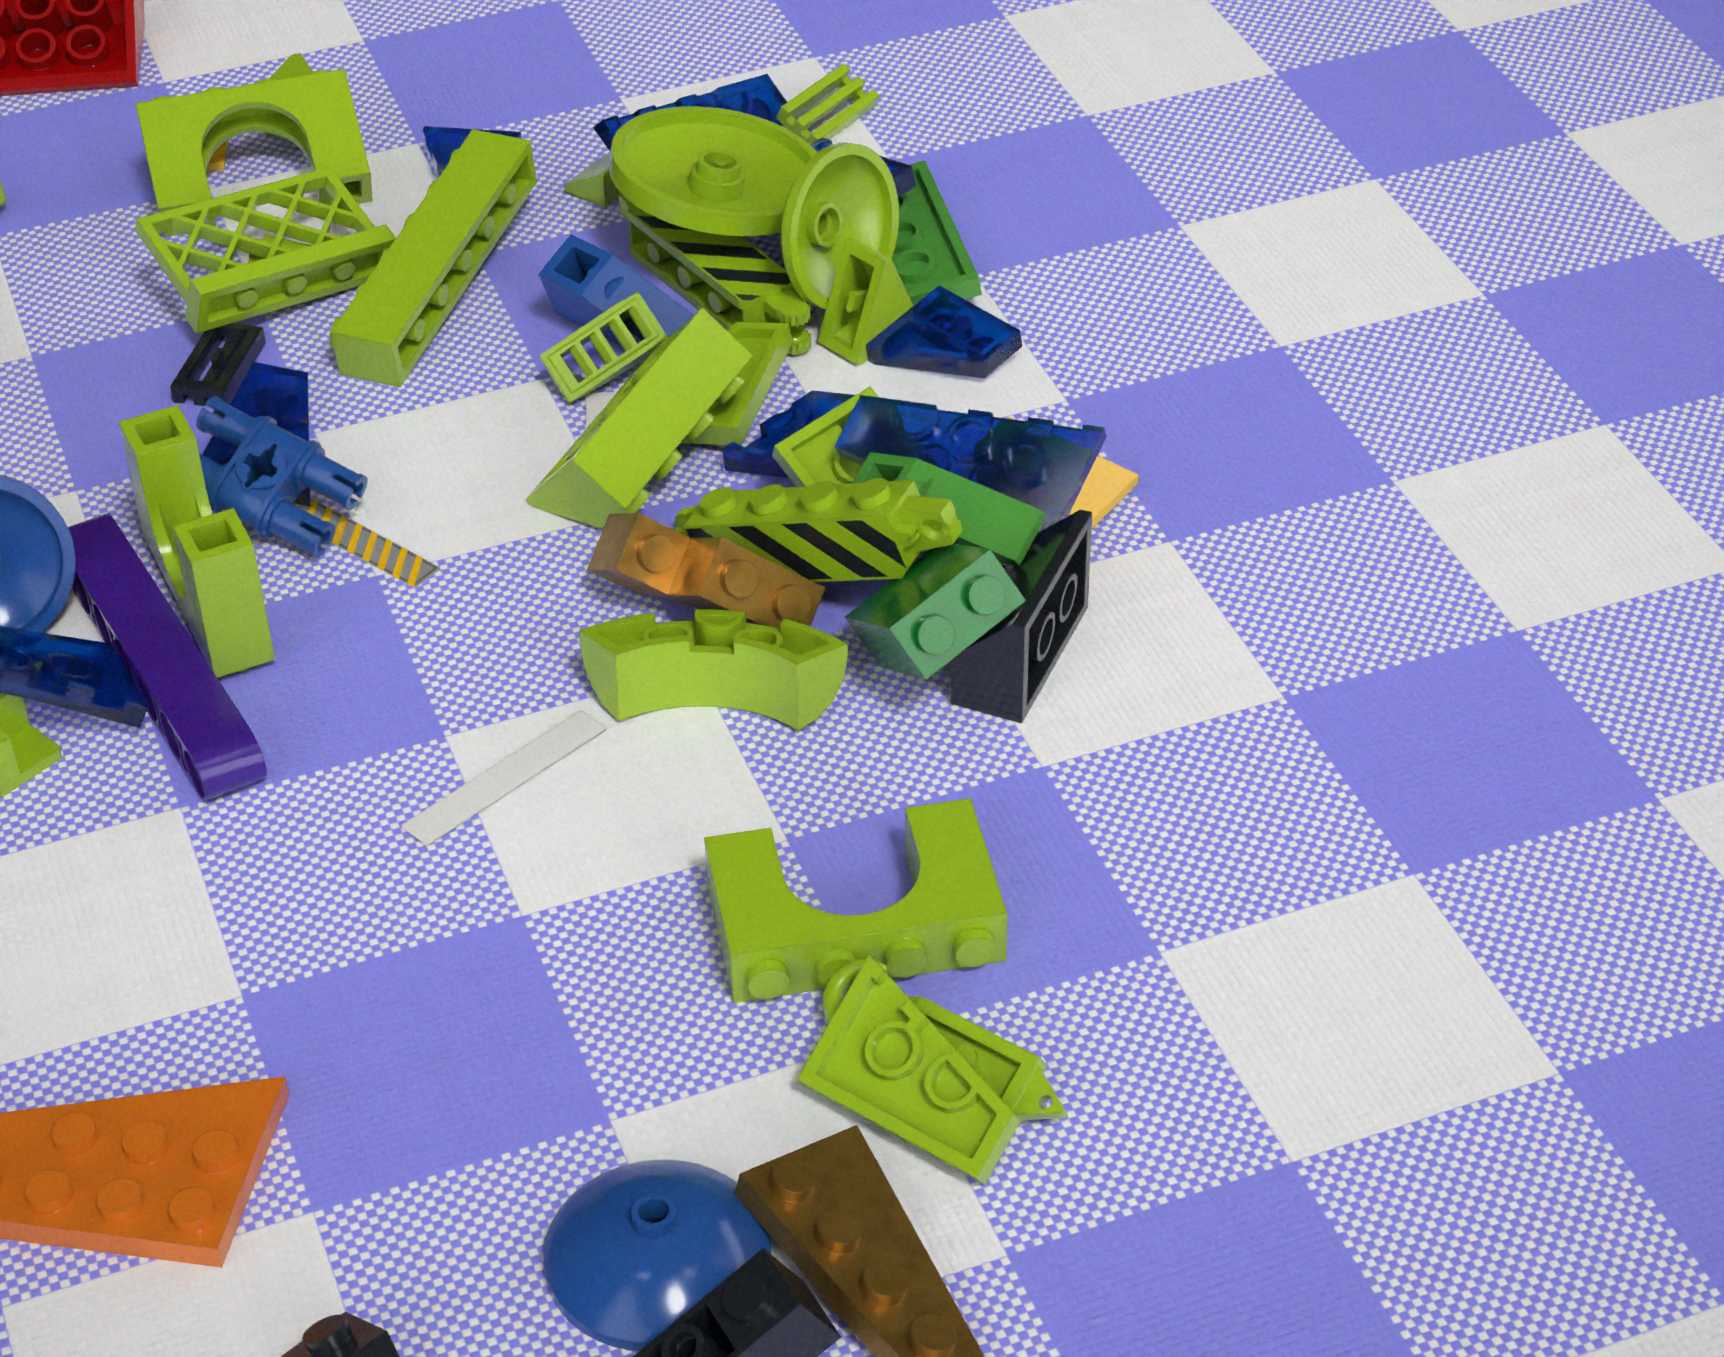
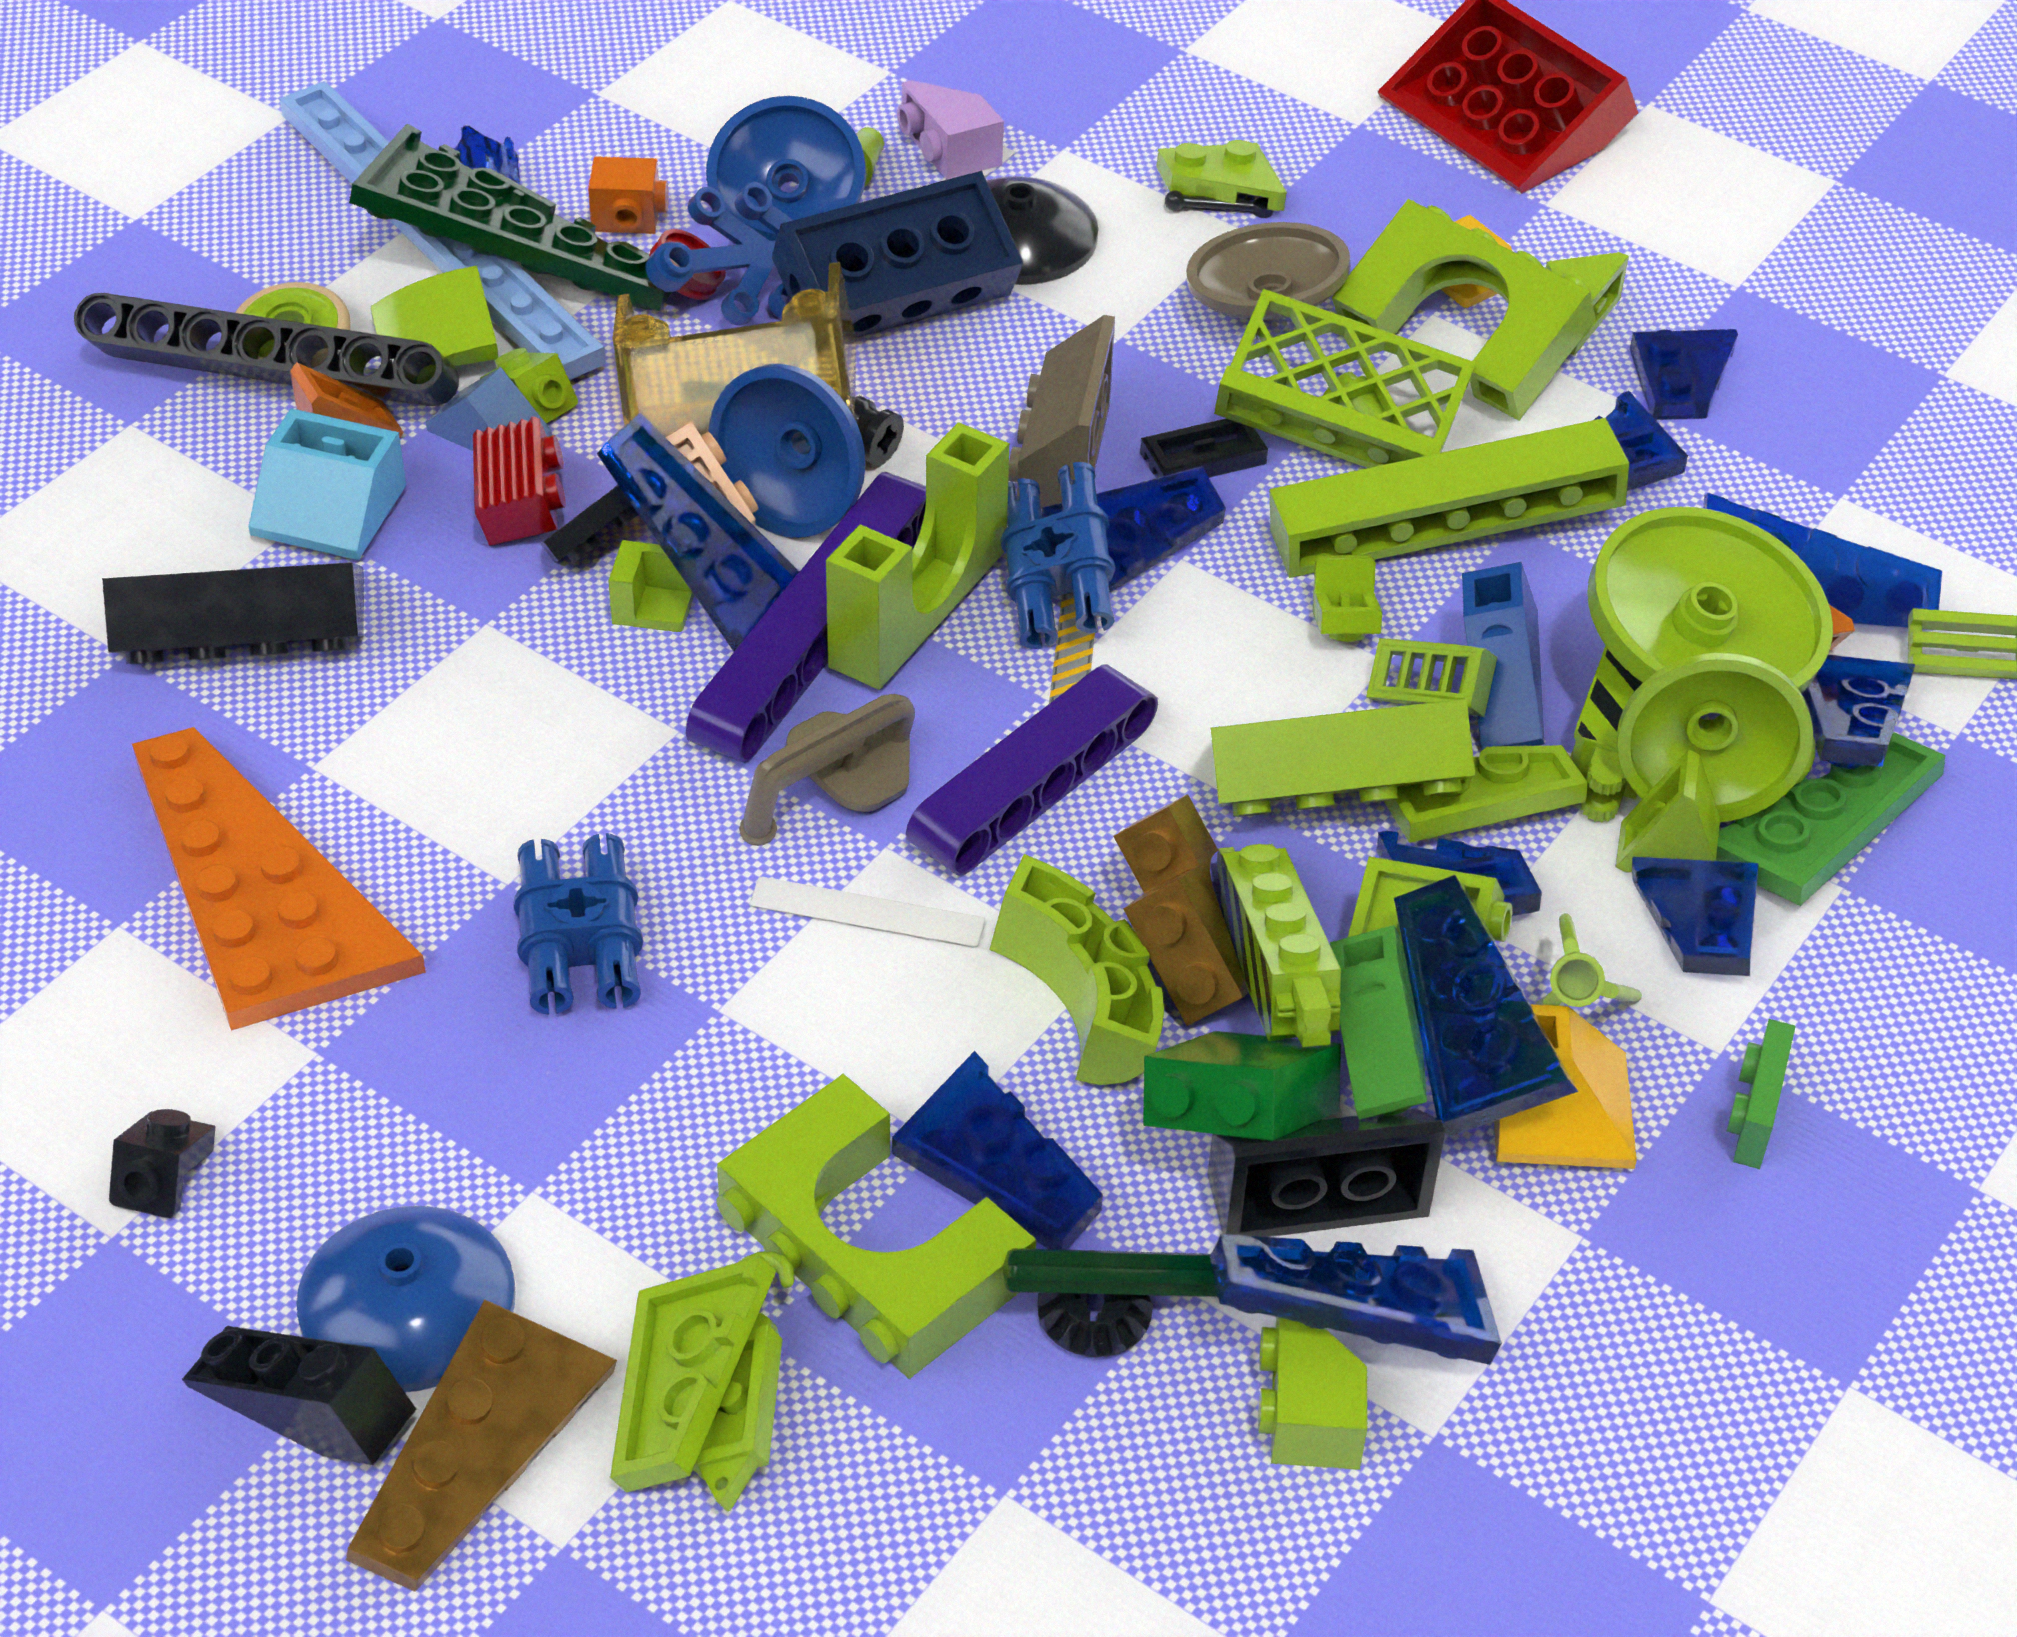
camera: 55 degrees right, 5 degrees up
(83, 225) = (1274, 256): none -> dark tan dish
(104, 376) = (1067, 409): none -> dark tan slope
(341, 707) = (851, 756): none -> dark tan piece
(353, 953) = (578, 923): none -> blue pin
(418, 98) = (1681, 369): none -> clear blue wing
(468, 606) = (1031, 769): none -> dark purple beam
(471, 364) = (1345, 597): none -> lime bracket
(842, 807) = (986, 1147): none -> clear blue wing
(993, 392) = (1578, 977): none -> lime plant
(1036, 832) = (1117, 1327): none -> black gear
(1054, 746) = (1109, 1272): none -> dark green axle
(1135, 386) = (1755, 1113): none -> bright green plate
(1167, 643) = (1381, 1297): none -> clear blue wing
(1212, 725) = (1315, 1397): none -> lime slope

